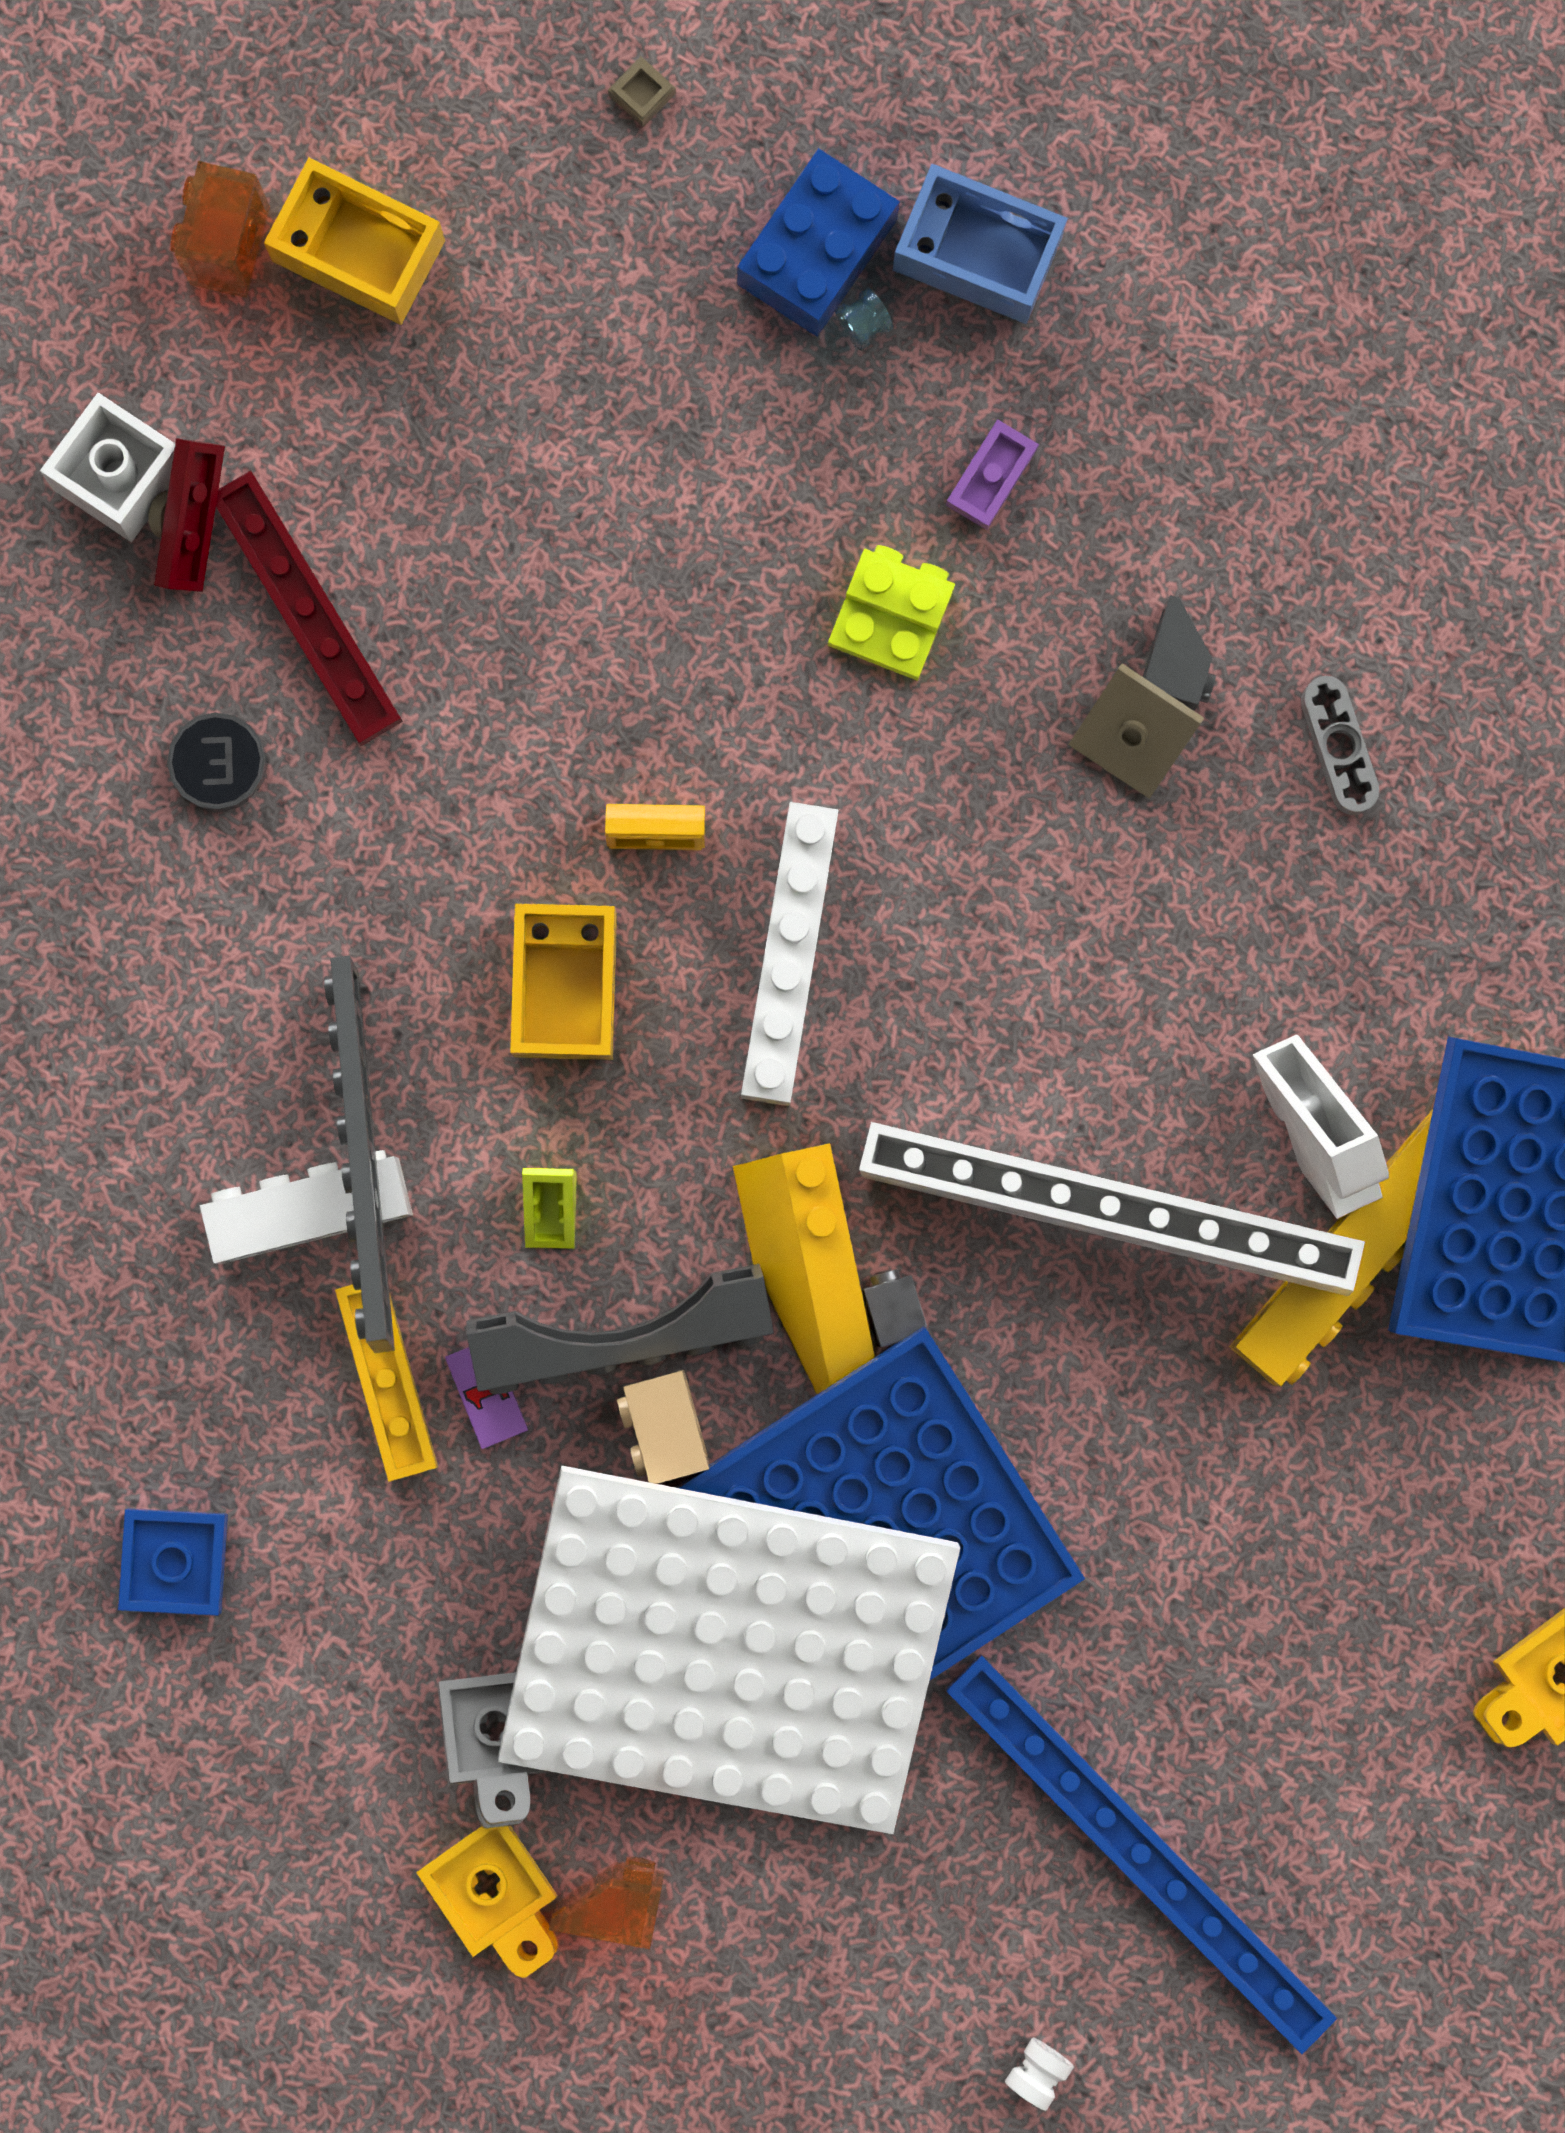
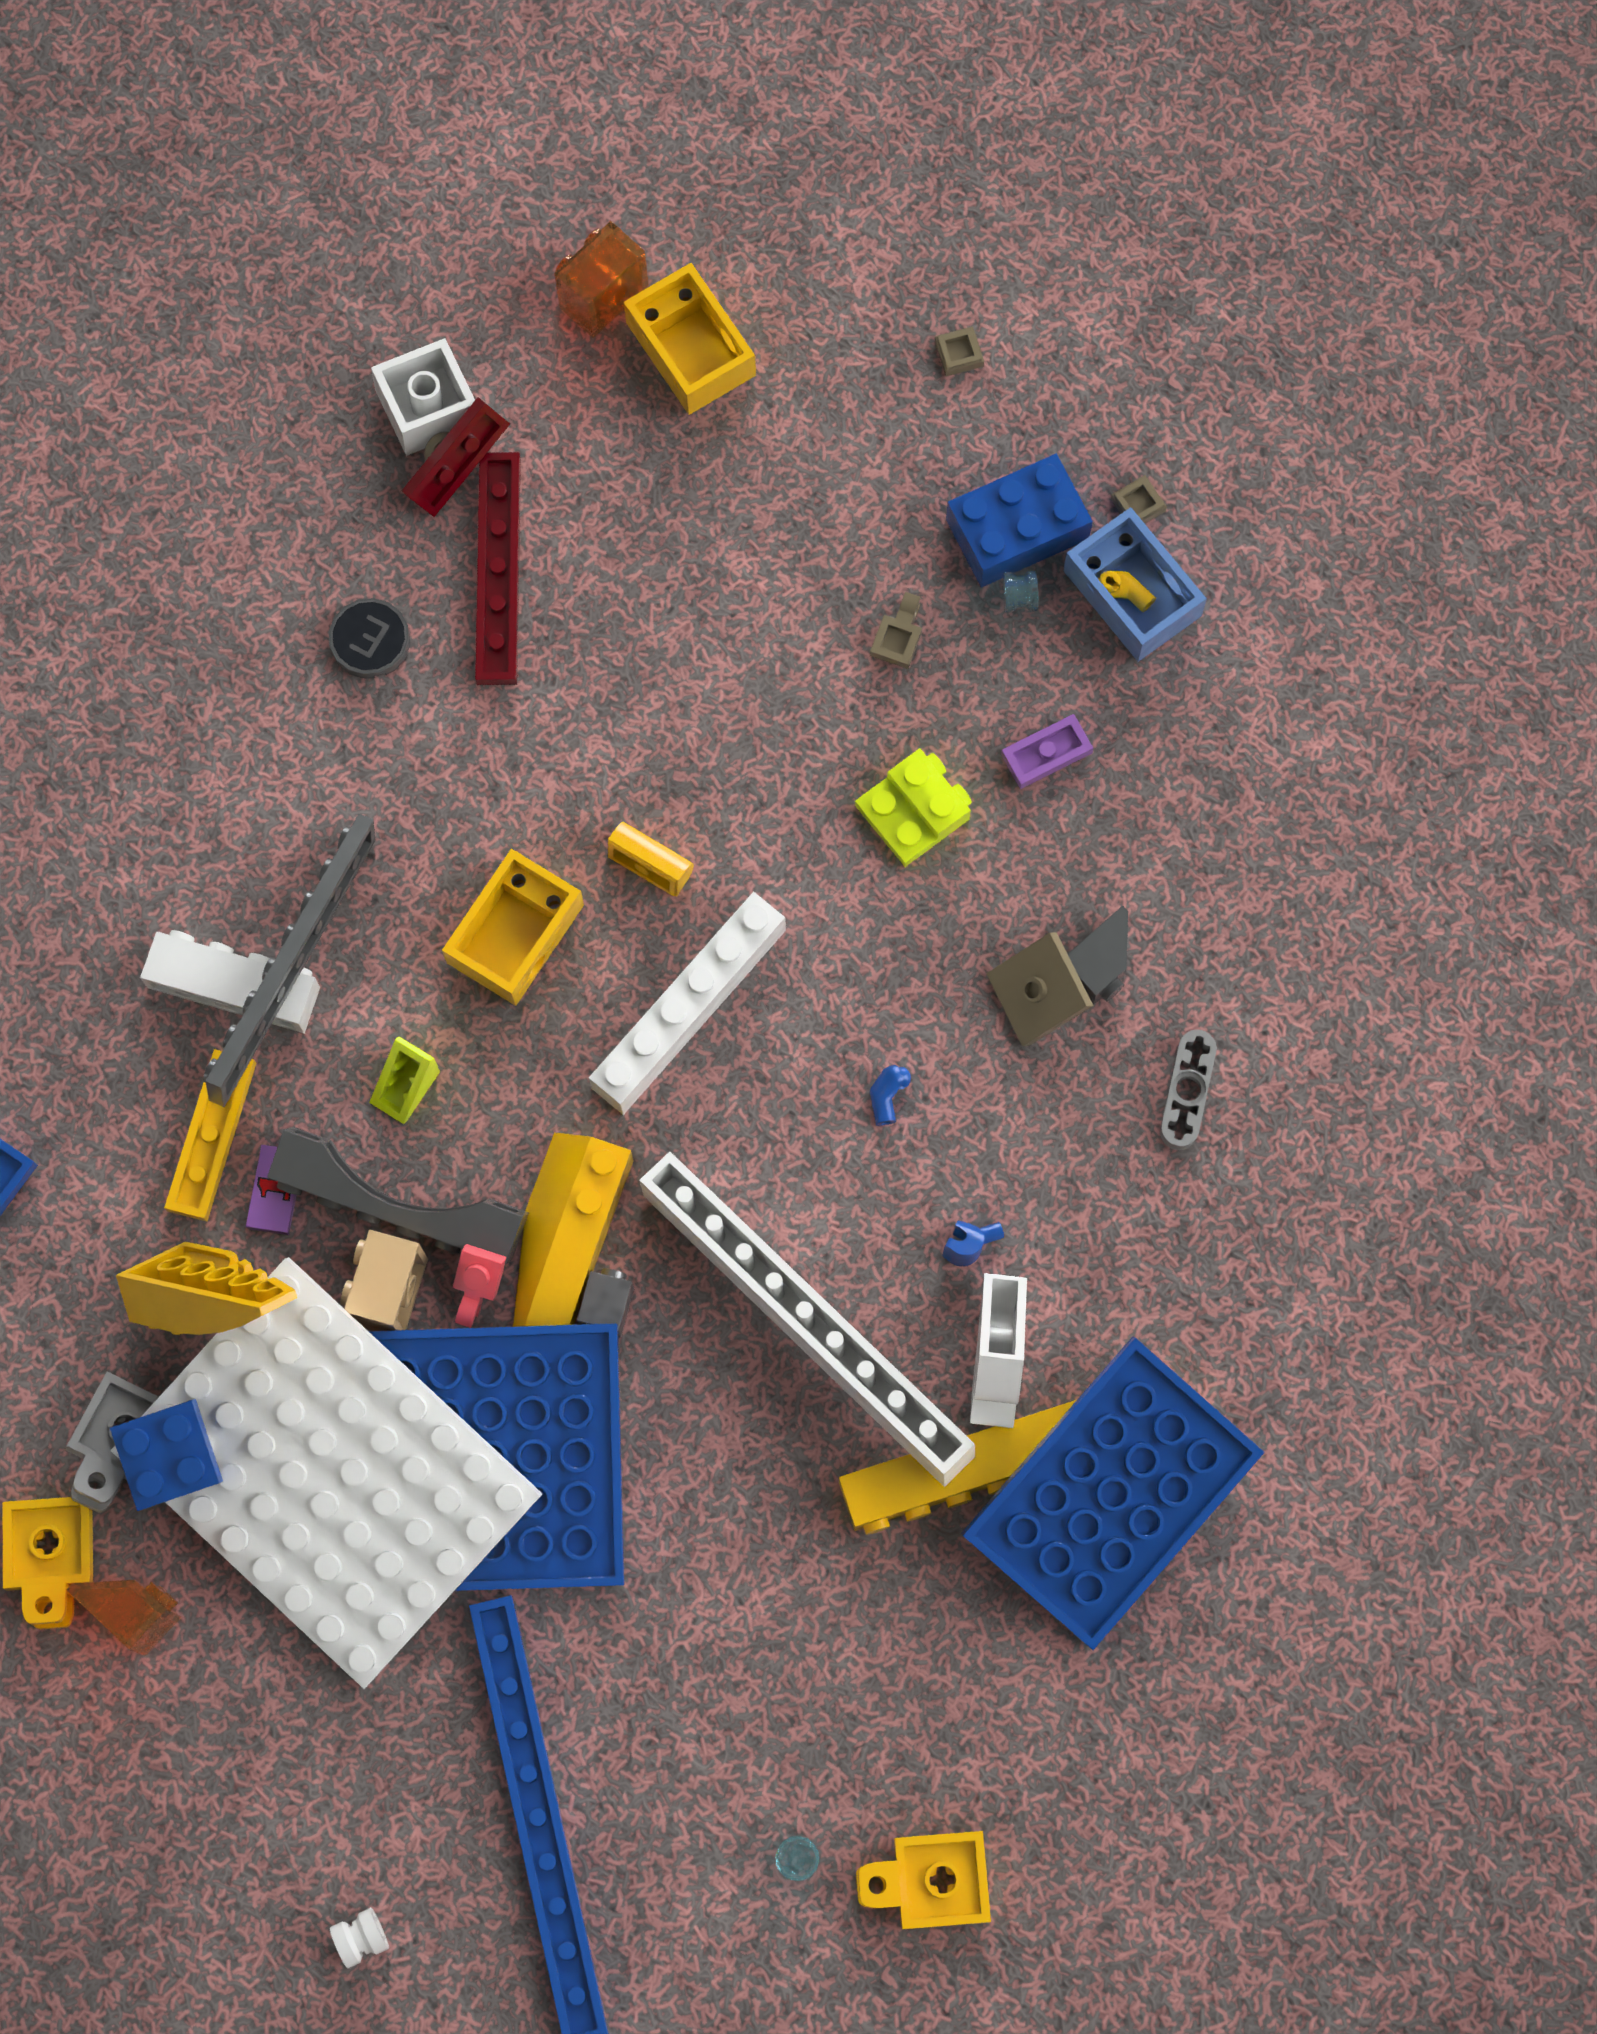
camera: 40 degrees right, 10 degrees down
(496, 1551) = (199, 1291): none -> yellow wedge
(561, 1735) = (166, 1454): none -> blue plate
(753, 1362) = (479, 1278): none -> coral plate
(768, 441) = (898, 636): none -> dark tan plate
(924, 147) = (1141, 498): none -> dark tan tile
(970, 250) = (1125, 586): none -> yellow arm
(1039, 923) = (884, 1089): none -> blue arm
(1219, 1027) = (969, 1249): none -> blue piece
(1421, 1745) = (792, 1857): none -> clear light blue wheel

